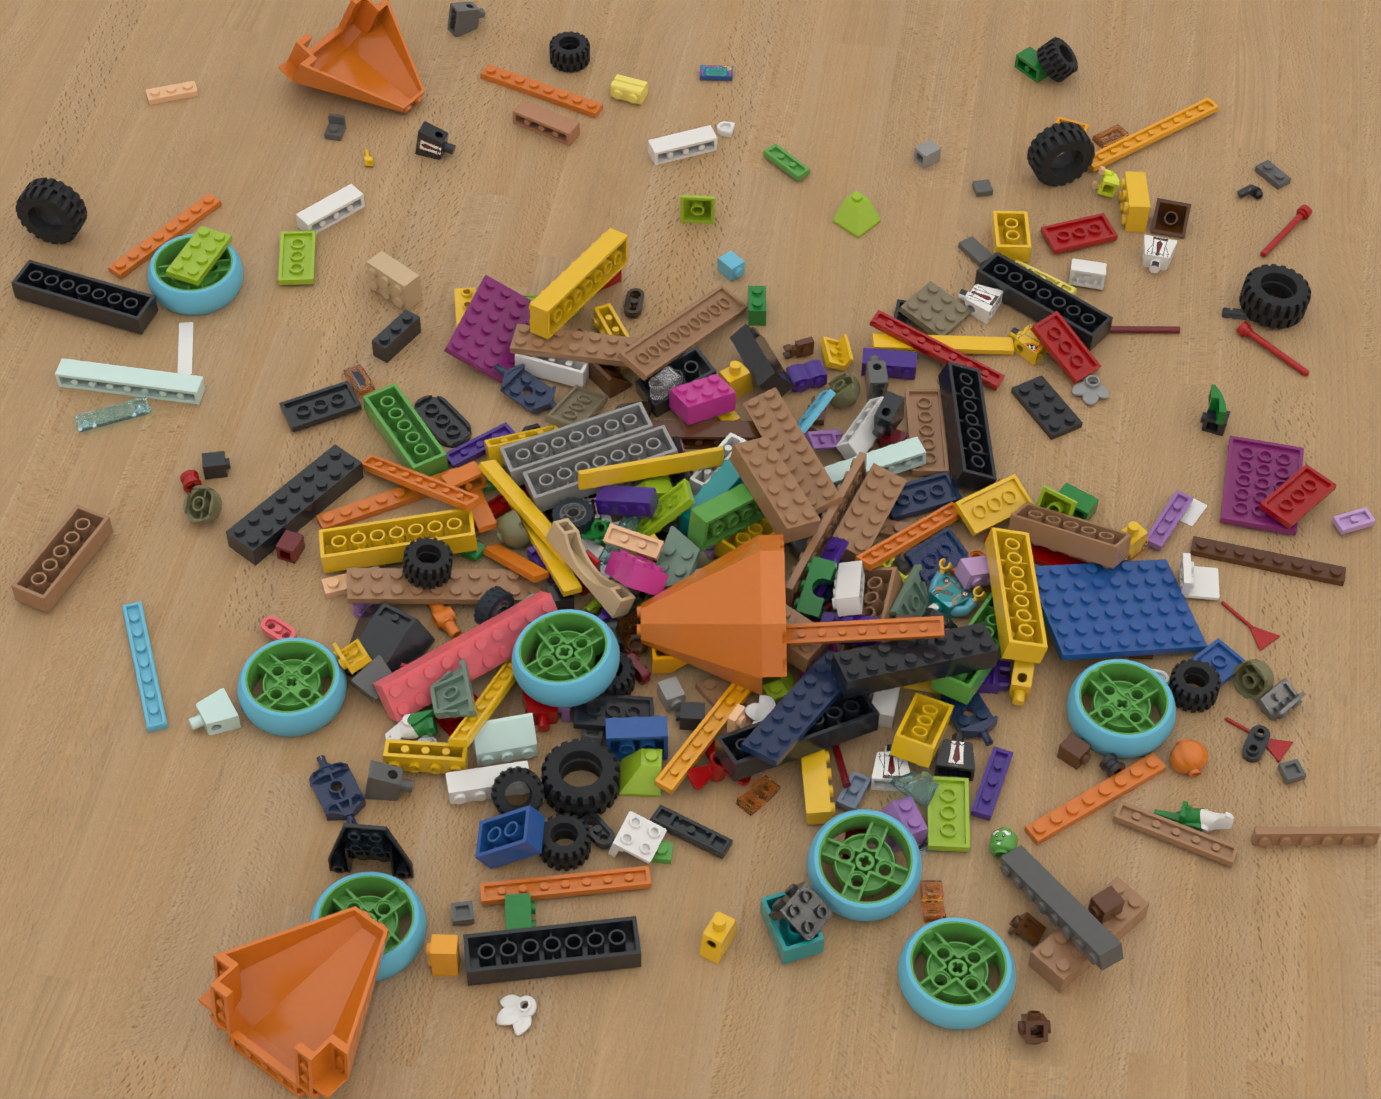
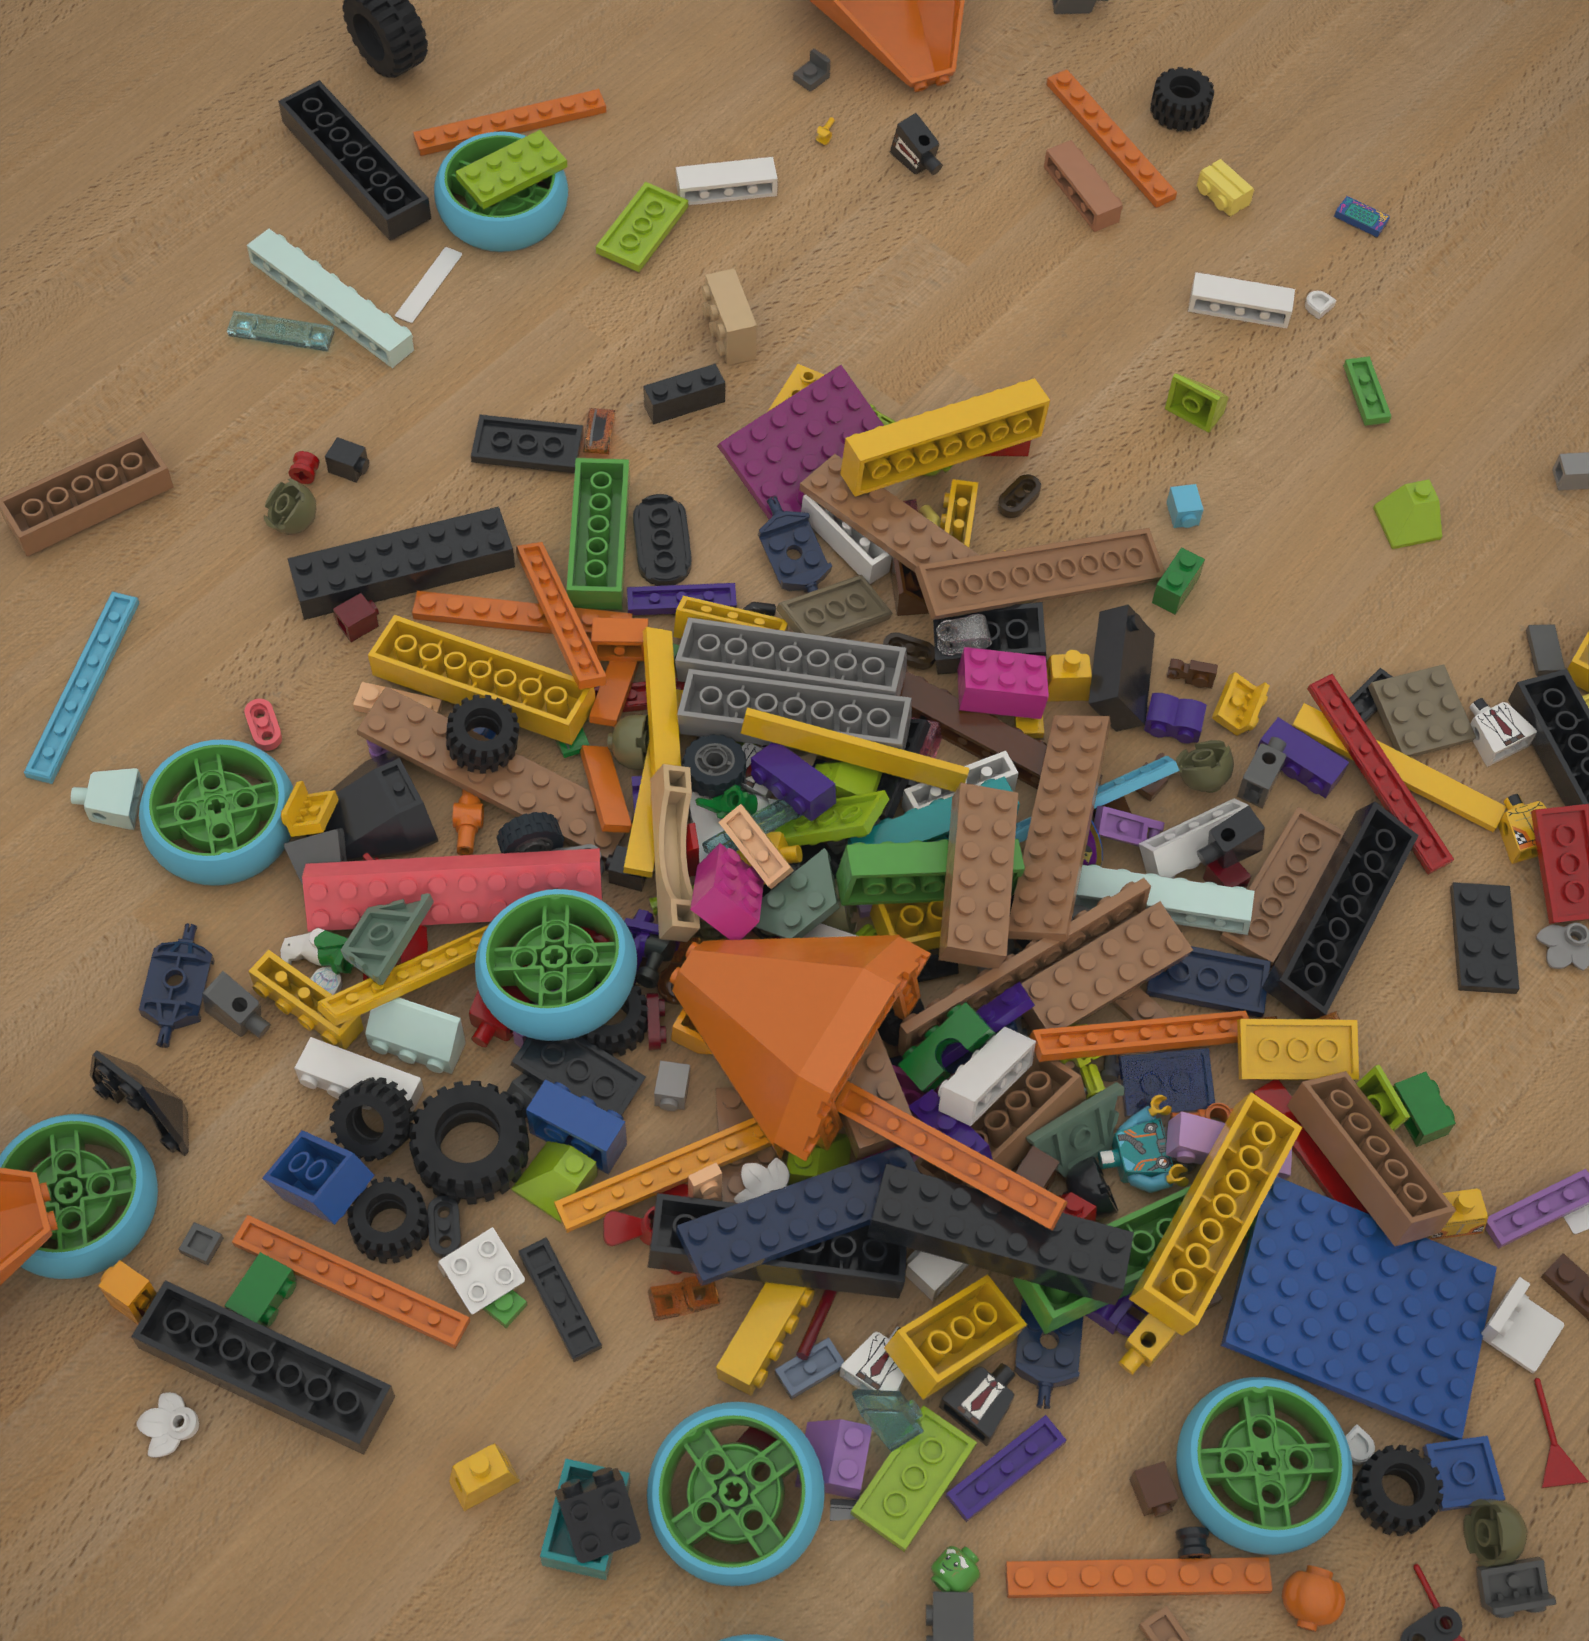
camera: 30 degrees right, 10 degrees up
(690, 715) = (675, 1130): black brick -> none
(932, 900) = (803, 1596): clear orange slope -> none

